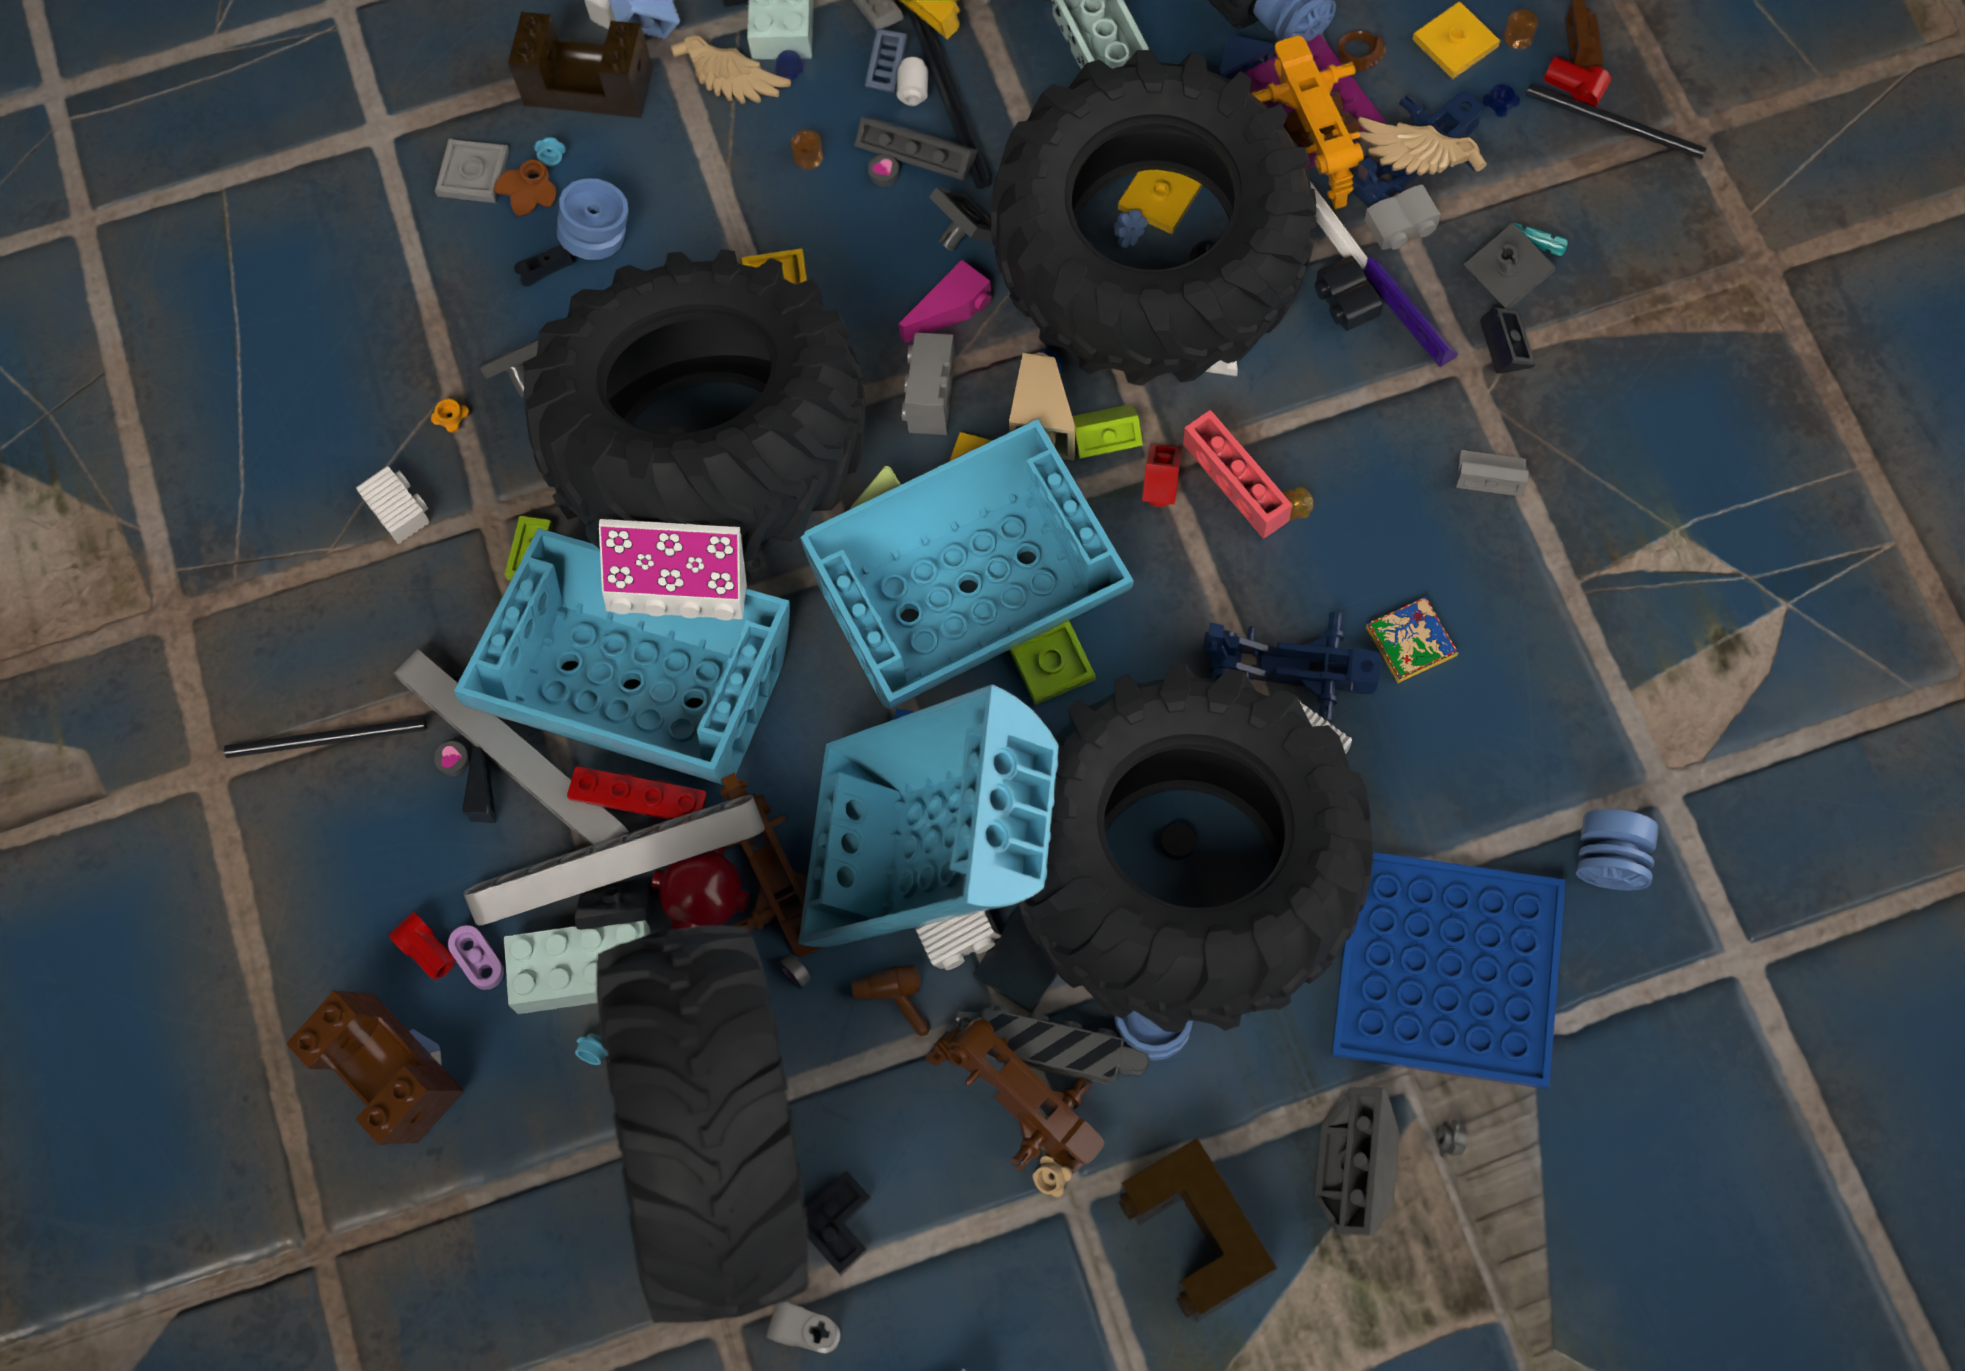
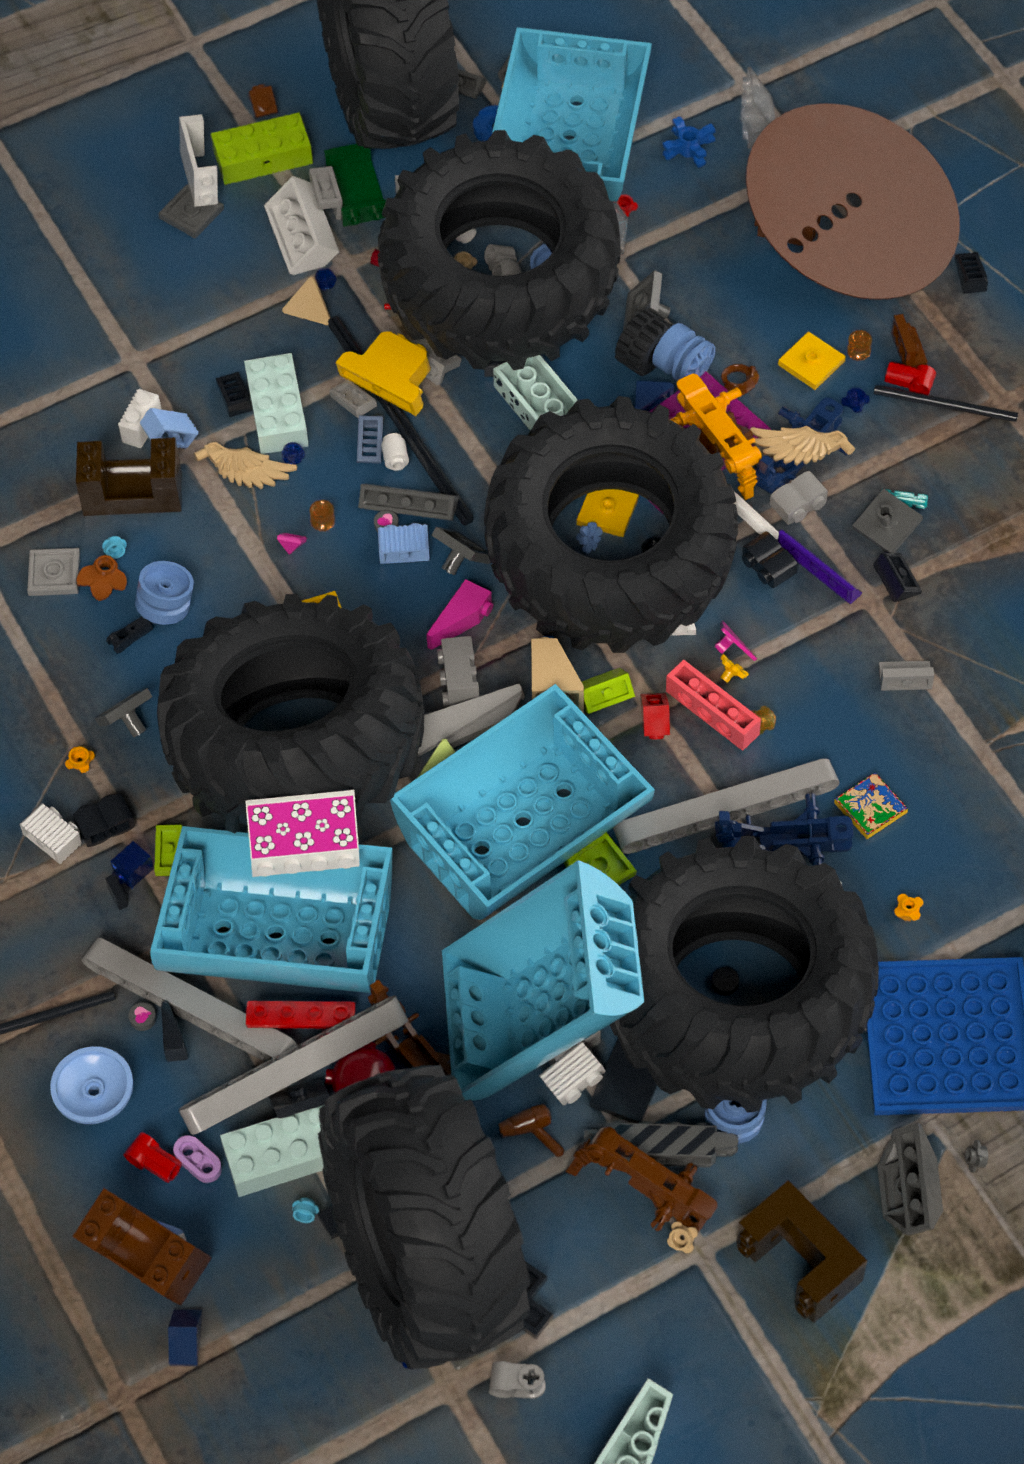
camera: 15 degrees left, 10 degrees down
(353, 826) = (89, 1071): none -> light blue dish
(410, 1186) = (184, 1337): none -> dark blue slope
(454, 593) = (116, 892): none -> black tile
(459, 497) = (103, 820): none -> black brick
(479, 562) = (131, 865): none -> clear blue brick
(762, 177) = (290, 541): none -> dark pink slope
(897, 201) = (403, 543): none -> light blue brick
(926, 442) = (470, 718): none -> light grey wedge
(1230, 607) = (740, 800): none -> light grey beam
(1271, 430) = (732, 669): none -> yellow plant
(1279, 388) = (729, 638): none -> dark pink piece
(1429, 793) = (905, 913): none -> light orange plate

